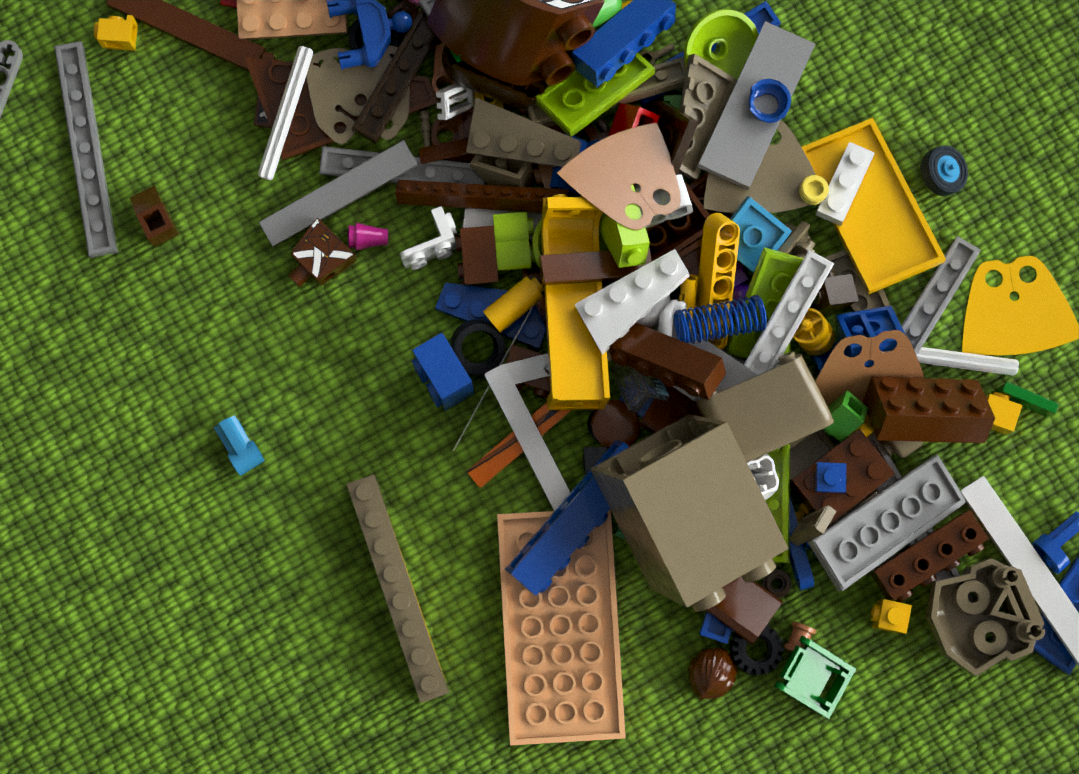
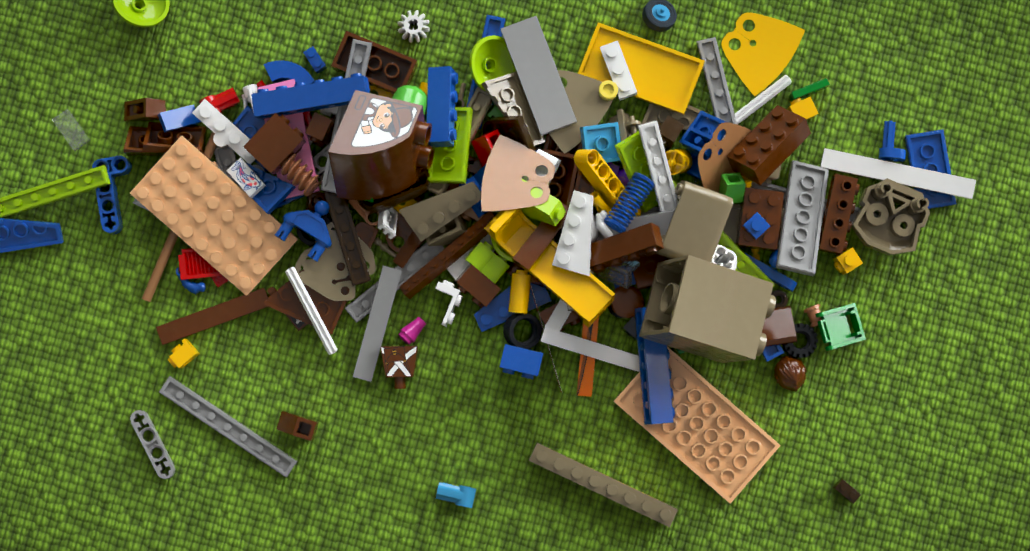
camera: 45 degrees left, 5 degrees up
(777, 90) = (547, 59): blue piece -> none
(812, 525) = (770, 257): dark tan tile -> none

